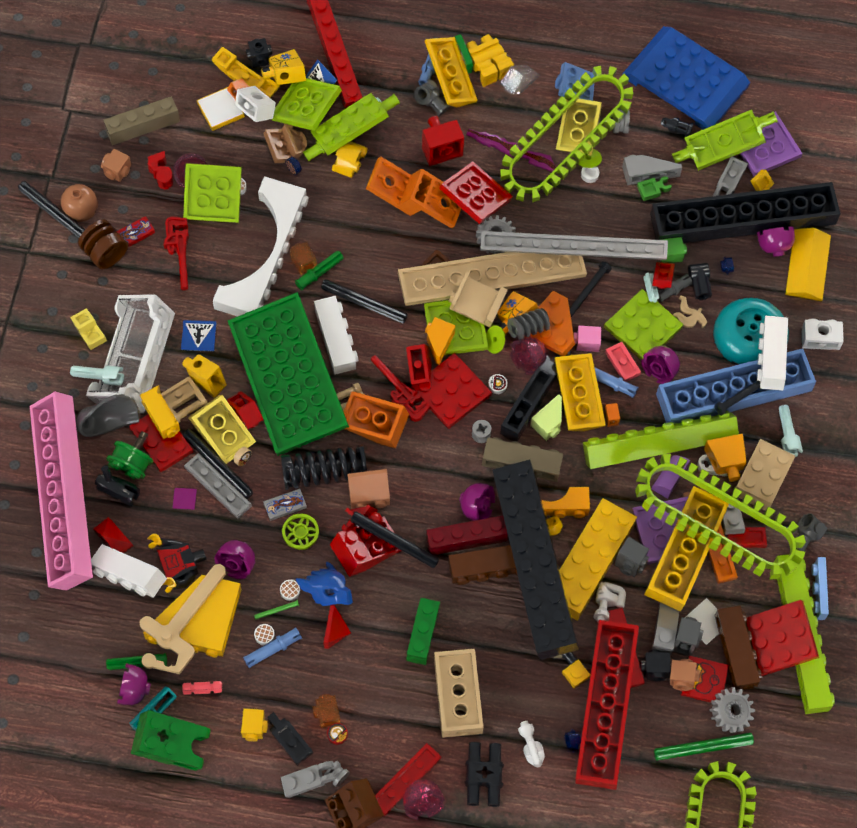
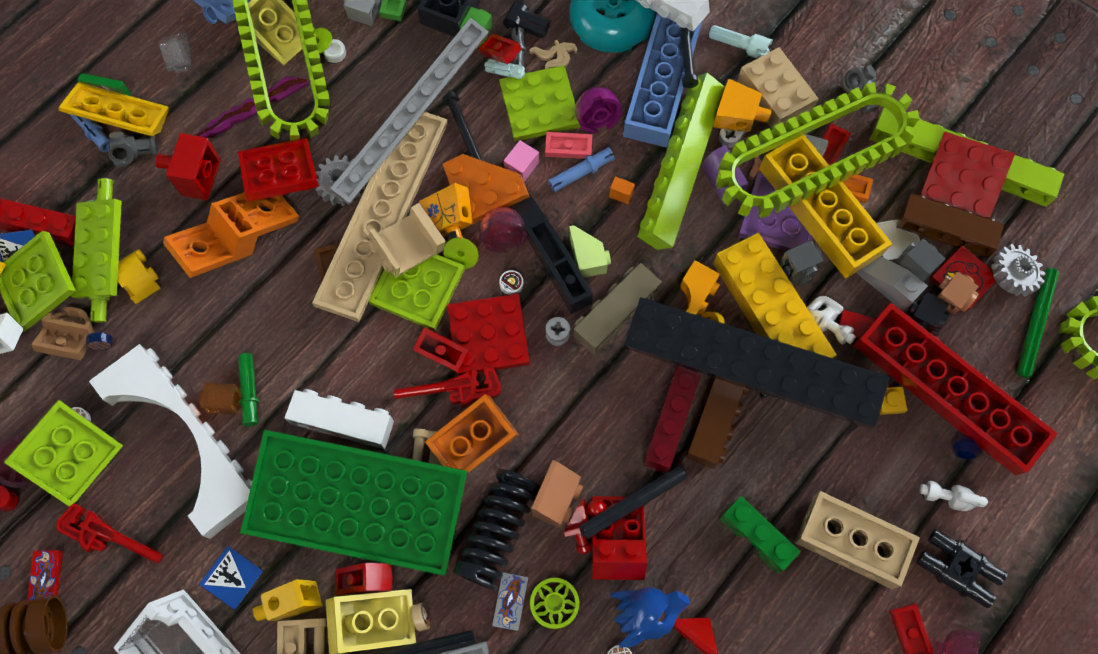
camera: 55 degrees left, 5 degrees up
(364, 301) = (319, 363): black axle -> none
(439, 337) = (423, 308): light orange slope -> none
(477, 500) = (639, 385): magenta cylinder -> none
(486, 57) = (133, 64): yellow hips -> none
(528, 323) = (474, 205): dark grey piece -> none
(580, 392) = (578, 204): yellow slope -> none
(820, 588) = (930, 112): light blue plate -> none

